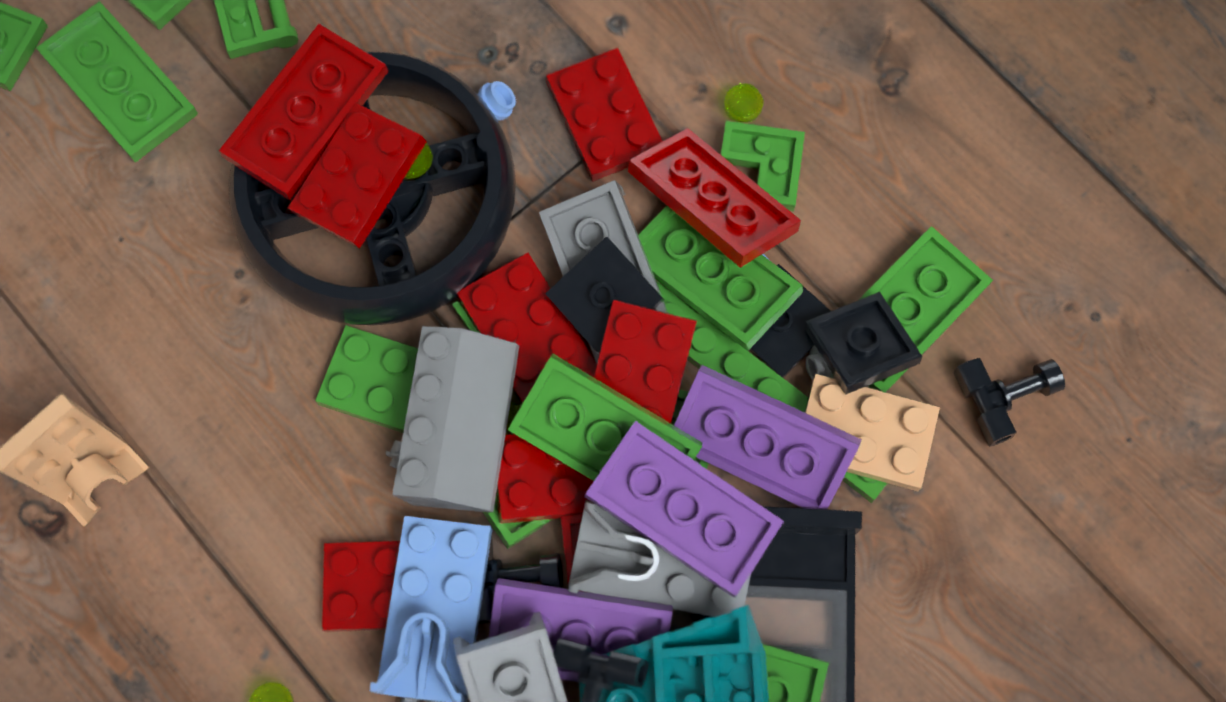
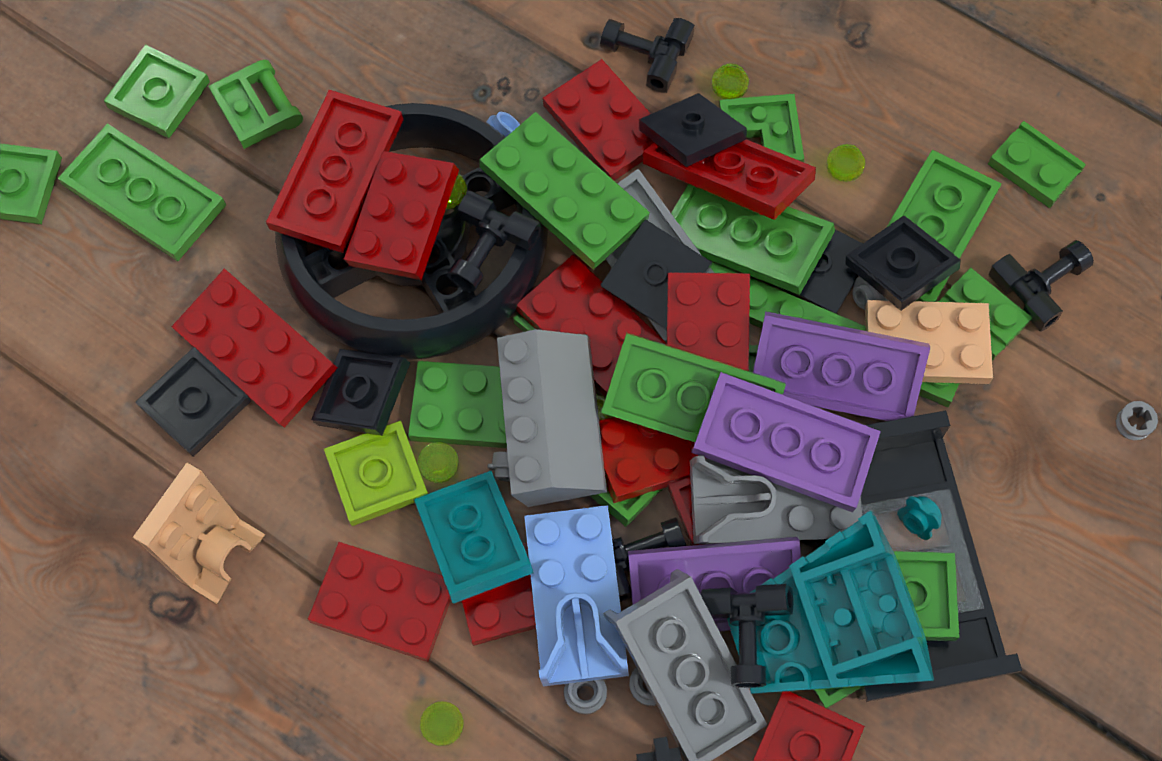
camera: 10 degrees left, 5 degrees down
(112, 313) = (193, 401): none -> black plate
(186, 272) = (254, 347): none -> red plate
(246, 565) = (382, 601): none -> red plate
(273, 432) = (375, 473): none -> lime plate
(279, 344) = (361, 392): none -> black plate
(338, 435) = (438, 462): none -> clear neon green plate
(348, 524) = (473, 536): none -> teal plate
(448, 211) = (493, 229): none -> black bar
(532, 186) = (564, 190): none -> bright green plate
(680, 53) = (661, 52): none -> black bar
(687, 148) = (692, 129): none -> black plate
(805, 615) = (920, 516): none -> teal plate
(838, 218) = (845, 162): none -> clear neon green plate
(954, 422) = (1005, 316): none -> bright green plate
(1037, 266) = (1036, 164): none -> bright green plate
(1070, 555) = (1142, 409): none -> light grey bush

